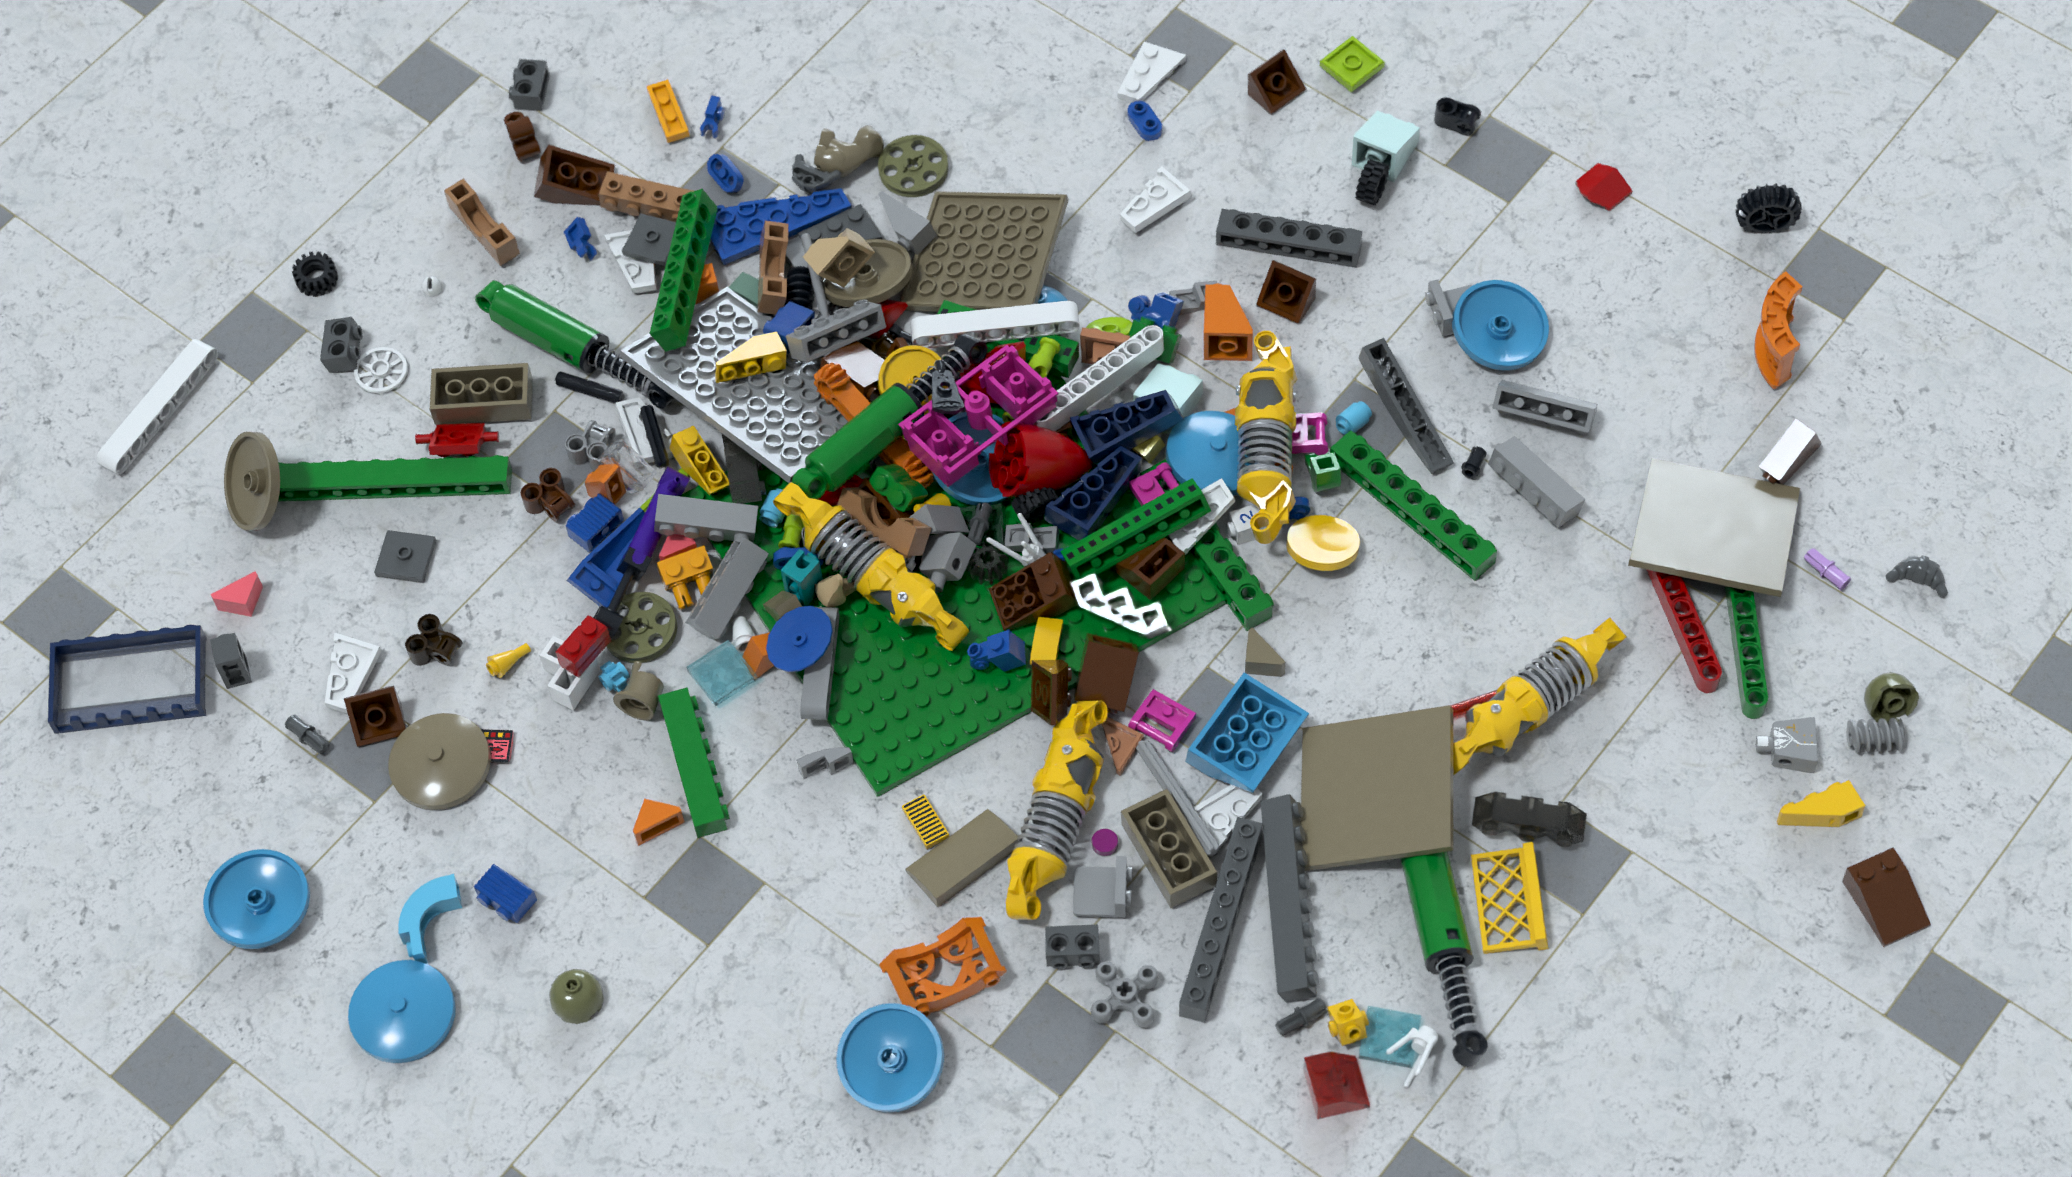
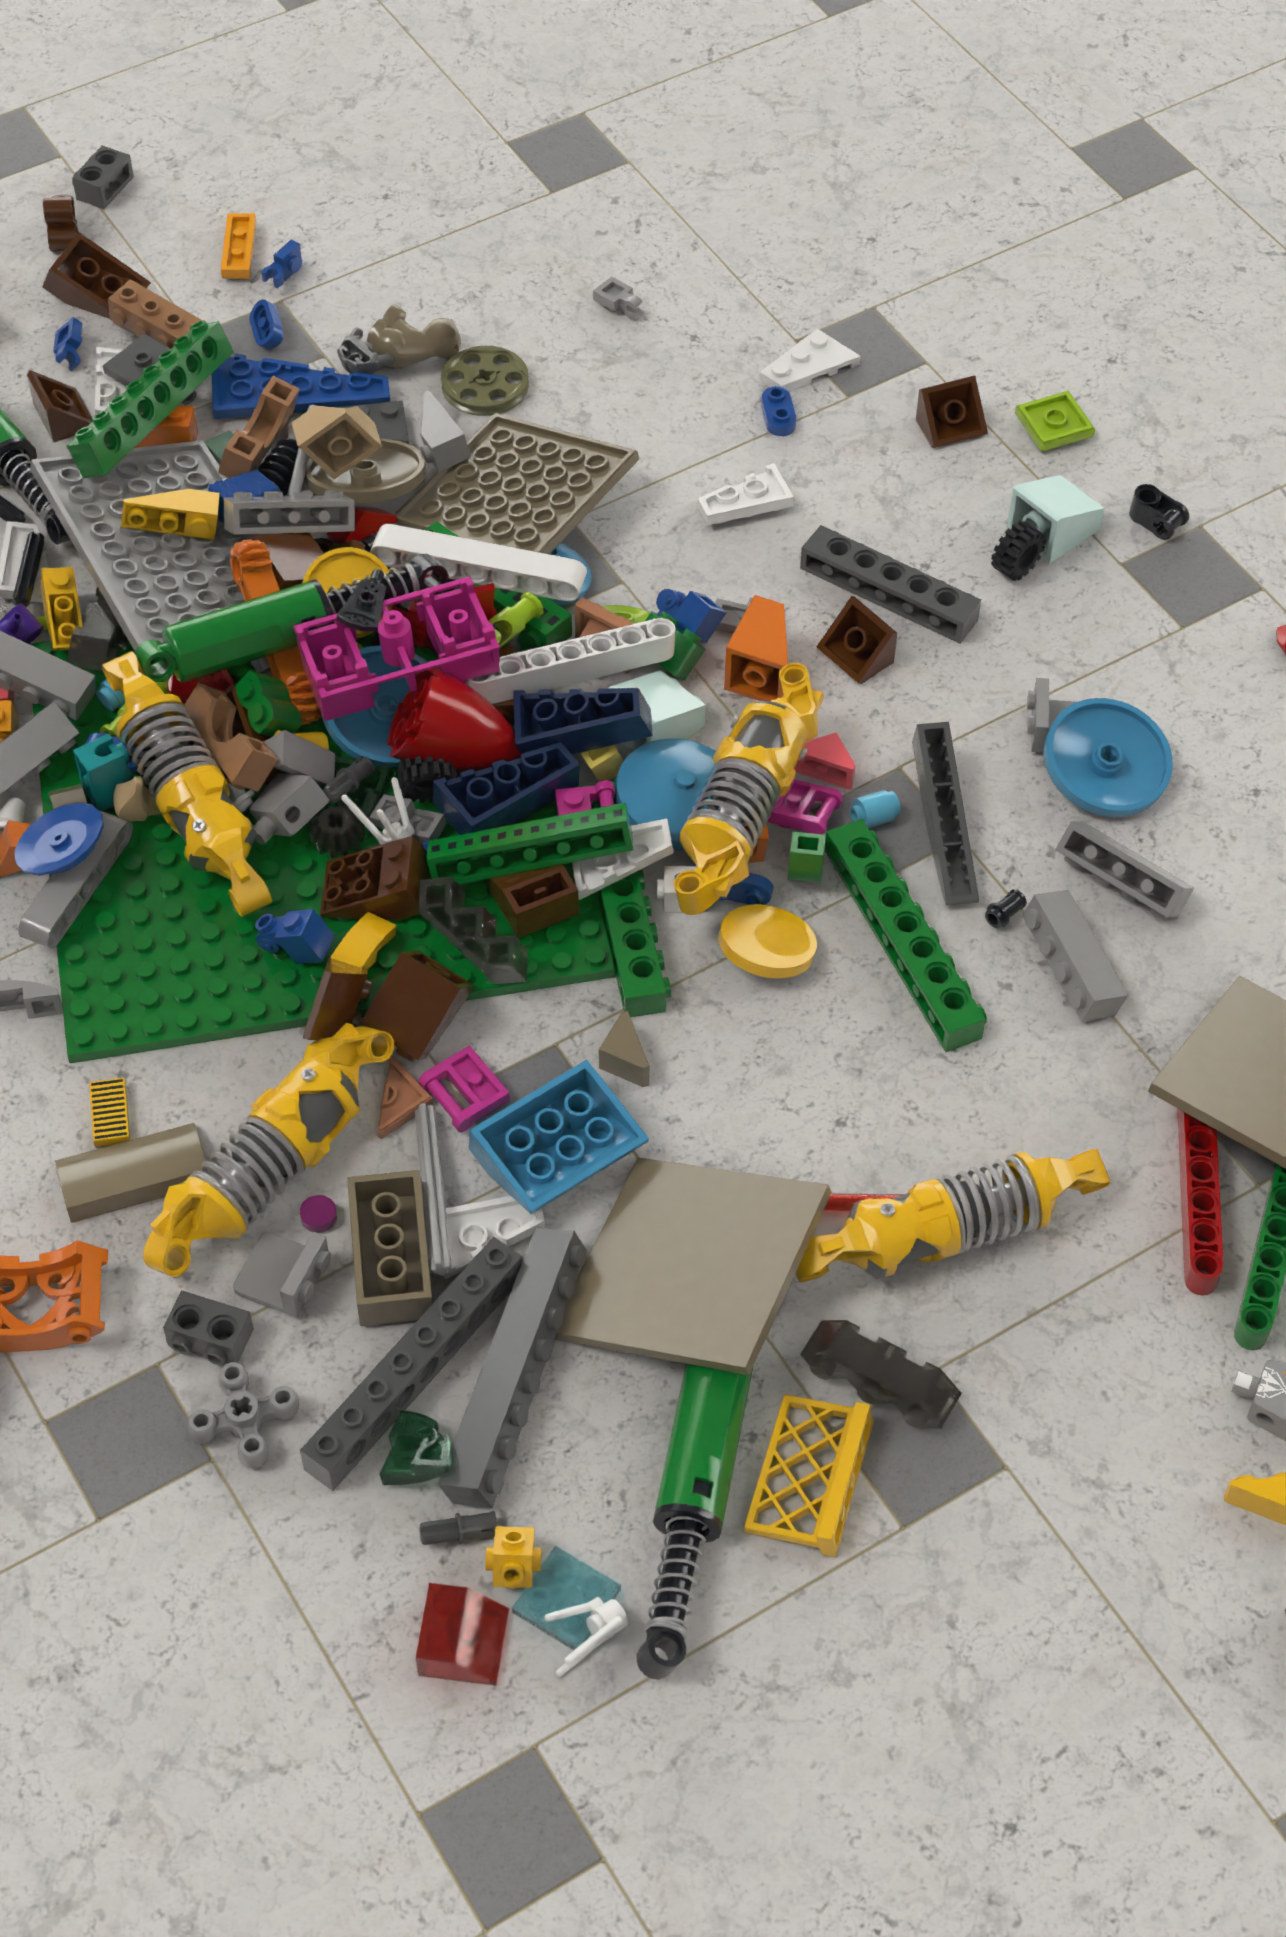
camera: 15 degrees right, 5 degrees down
(602, 295) = (58, 406): none -> reddish brown slope
(979, 61) = (617, 294): none -> light grey plate
(1251, 977) = (416, 1451): none -> clear green brick
(1309, 392) = (828, 761): none -> coral slope

